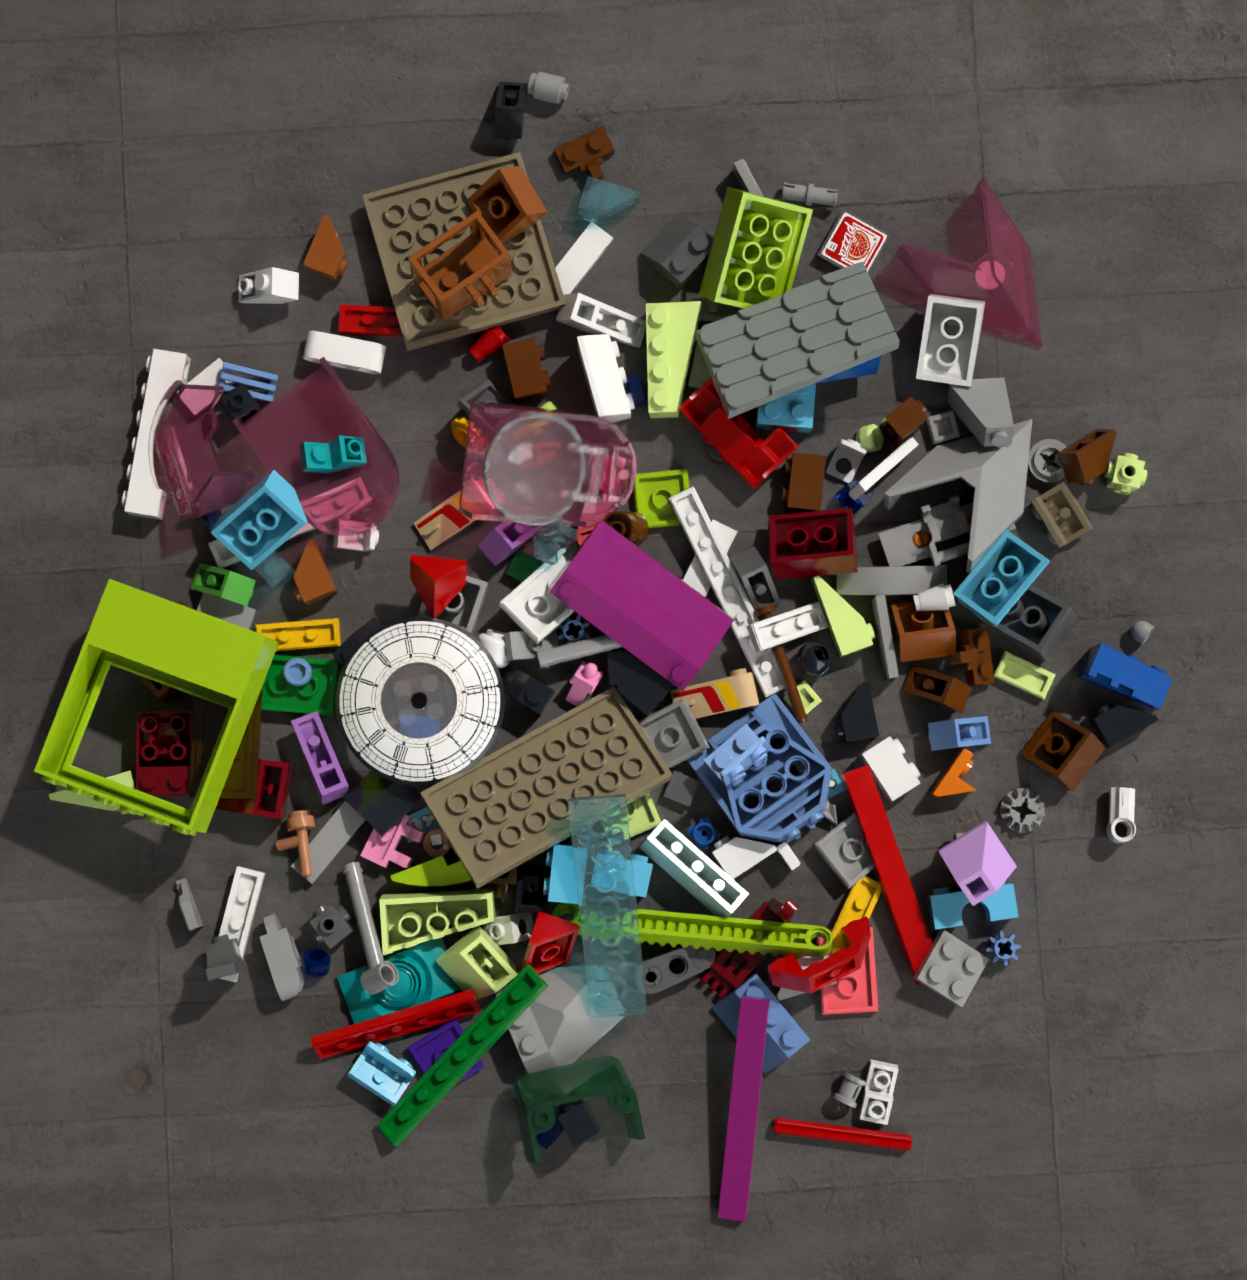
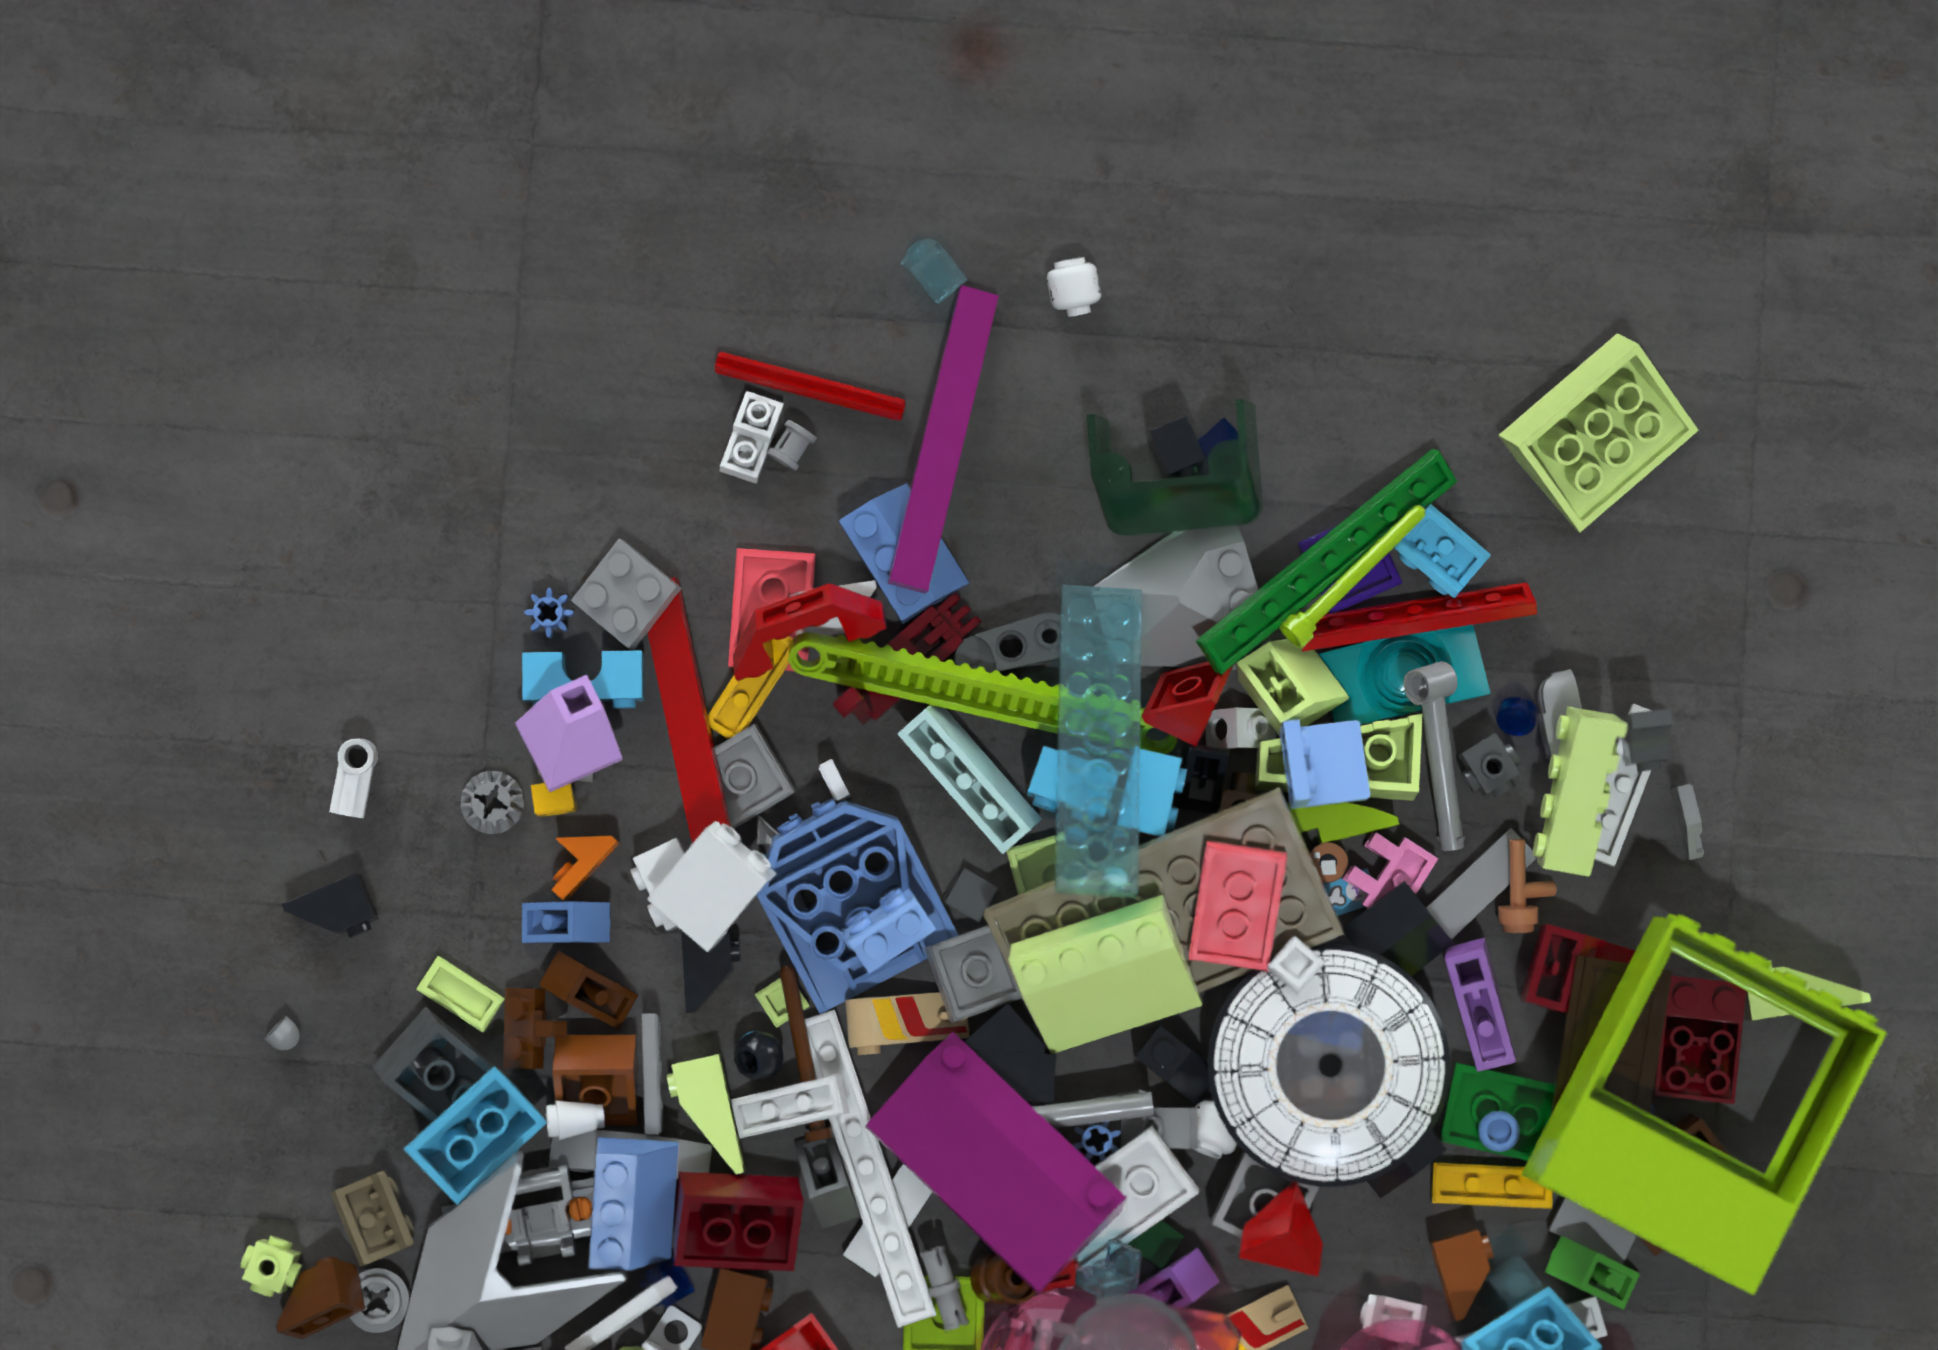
camera: 165 degrees left, 0 degrees up
(267, 915) = (1578, 790): none -> yellowish green wedge
(279, 1174) = (1599, 431): none -> yellowish green slope
(447, 910) = (1324, 763): none -> light blue bracket
(451, 766) = (1296, 965): none -> white tile
(475, 1005) = (1300, 628): none -> lime piece
(496, 802) = (1237, 905): none -> coral tile
(583, 682) = (1091, 1064): bright pink piece -> none
(583, 743) = (1104, 975): none -> yellowish green slope
(665, 517) = (944, 1287): none -> light grey pin
(665, 1231) = (1074, 286): none -> white head
(704, 825) = (952, 817): blue plate -> none
(740, 854) = (900, 791): white slope -> none
(767, 1230) = (933, 269): none -> clear light blue bracket
(864, 770) = (711, 885): none -> white panel
(886, 546) = (633, 1203): none -> medium blue slope
(980, 814) = (553, 803): none -> yellow slope
(1063, 750) = (422, 879): reddish brown slope -> none
(1125, 676) = (316, 973): blue wedge -> none

